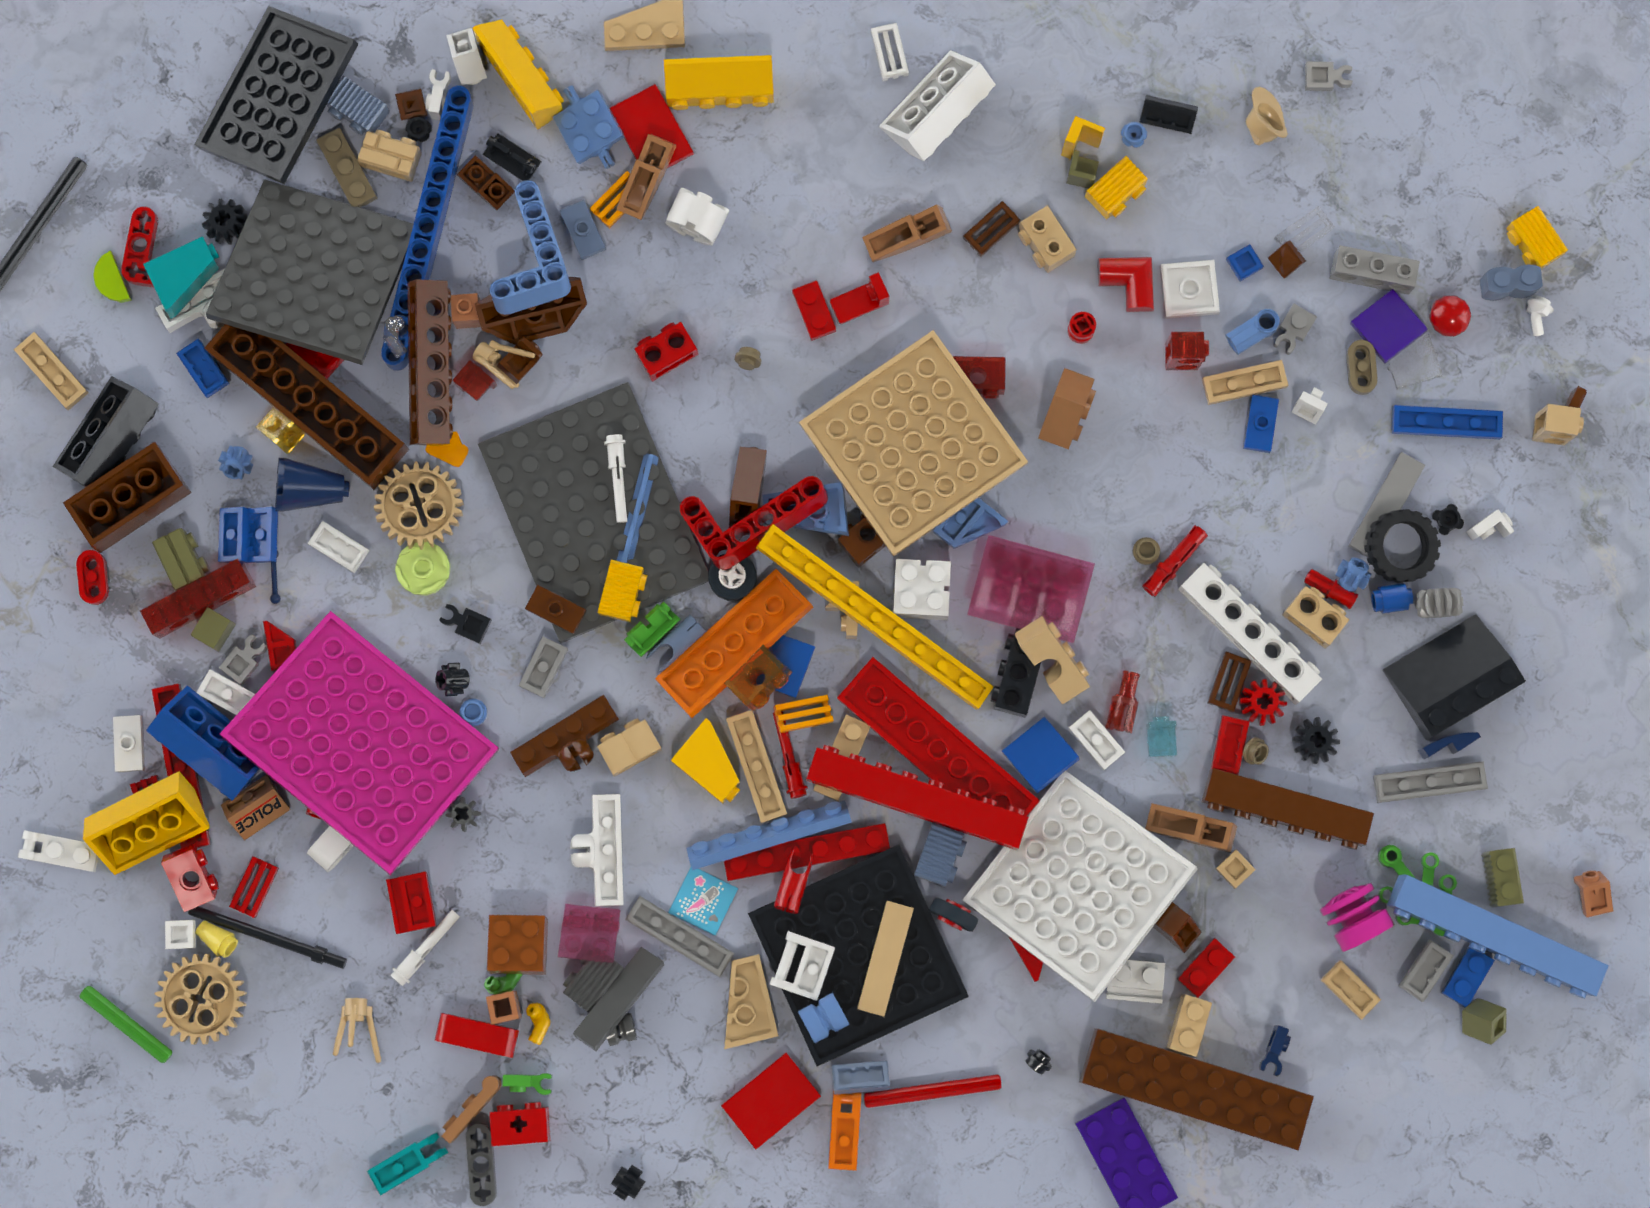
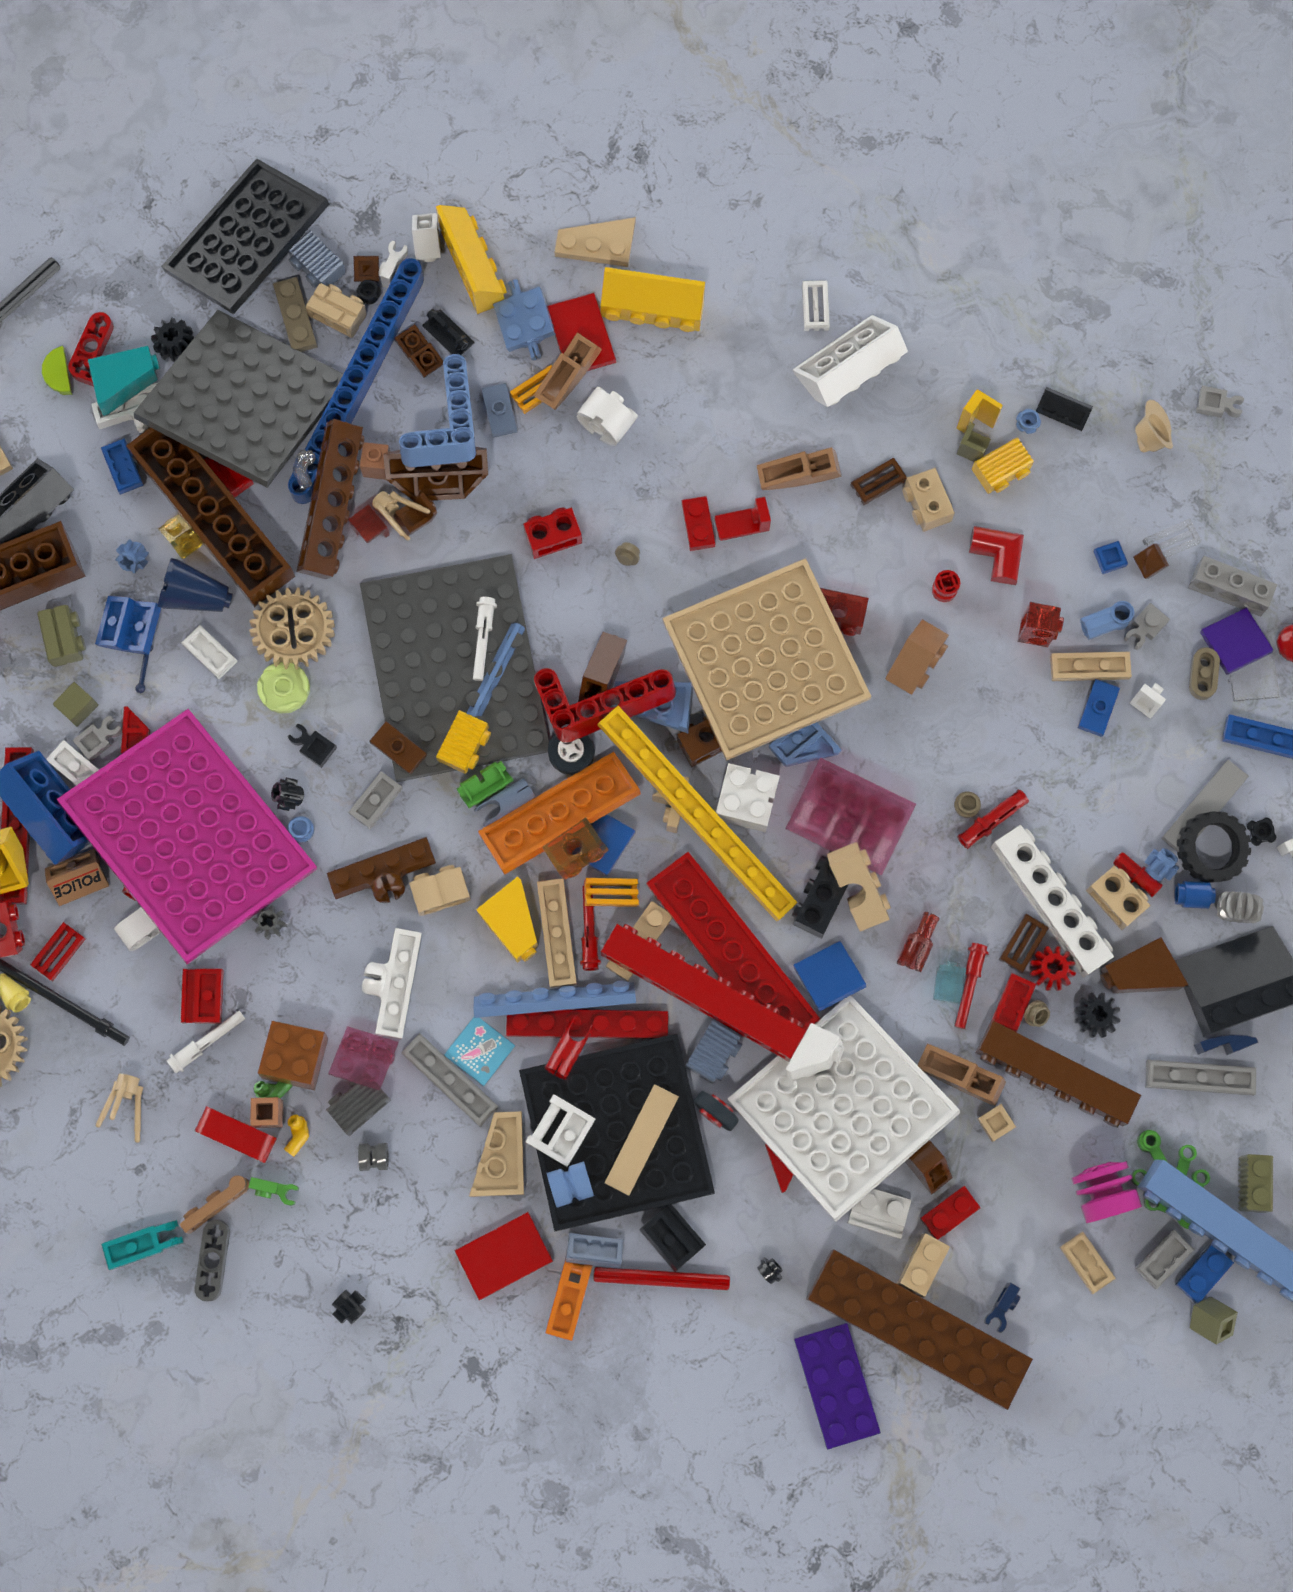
camera: 10 degrees right, 5 degrees down
(192, 600) = (57, 675): clear red brick -> none
(451, 453) = (334, 587): light orange sticker -> none
(535, 1132) = (241, 1233): red brick -> none
(618, 999) = (377, 1127): dark grey tile -> none
(935, 1048) = (672, 1237): none -> black plate
(1041, 837) = (815, 1053): none -> white slope
(1096, 740) = (886, 972): white plate -> none
(1184, 714) = (973, 971): none -> red pin
(1189, 289) = (1054, 571): white tile -> none
(1354, 686) = (1144, 970): none -> reddish brown slope

